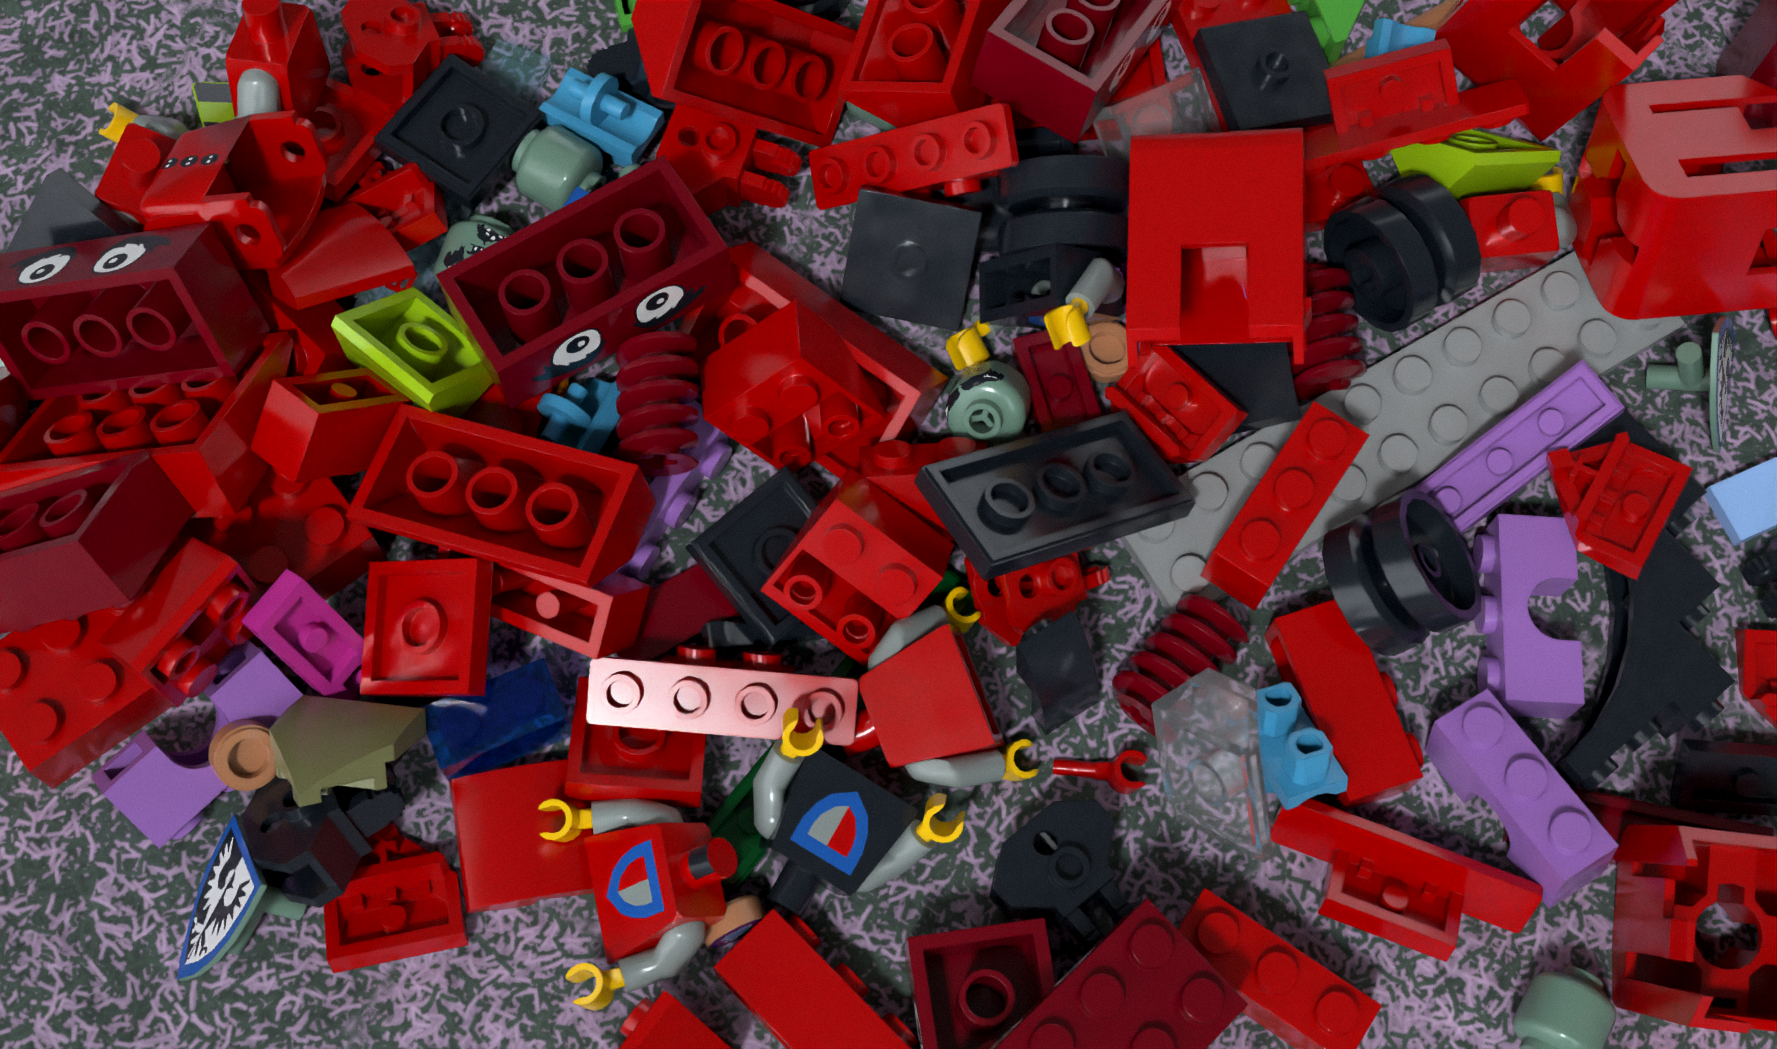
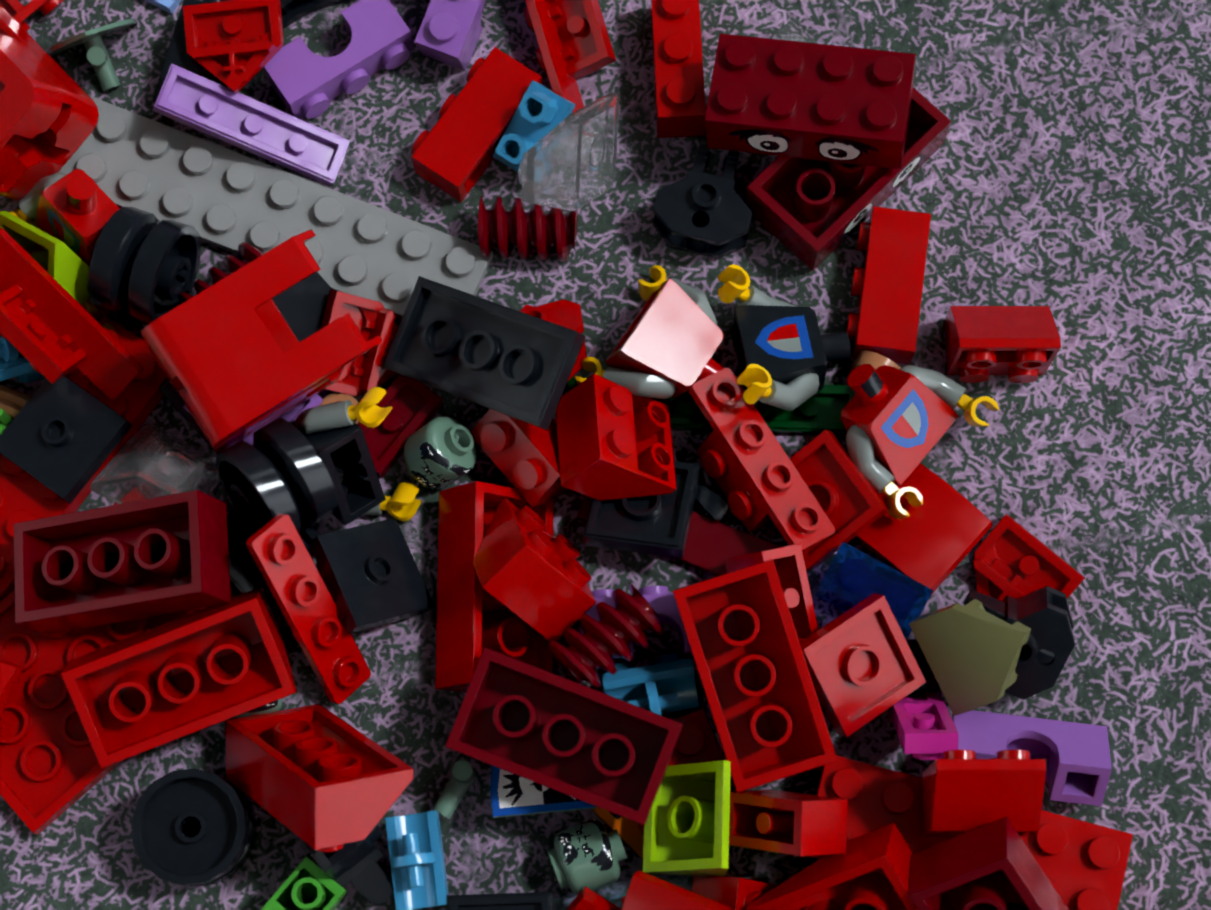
camera: 120 degrees left, 5 degrees up
(229, 904) = (1103, 662): shield -> none
(242, 755) = (1017, 716): nougat tile -> none
(554, 164) = (478, 858): sand green head -> none
(719, 160) = (416, 750): red hinge -> none
(1057, 670) = (587, 289): black slope -> none
(1104, 770) = (616, 230): red hand -> none
(1284, 505) = (381, 223): red brick -> none
(1401, 573) = (376, 130): black wheel -> none

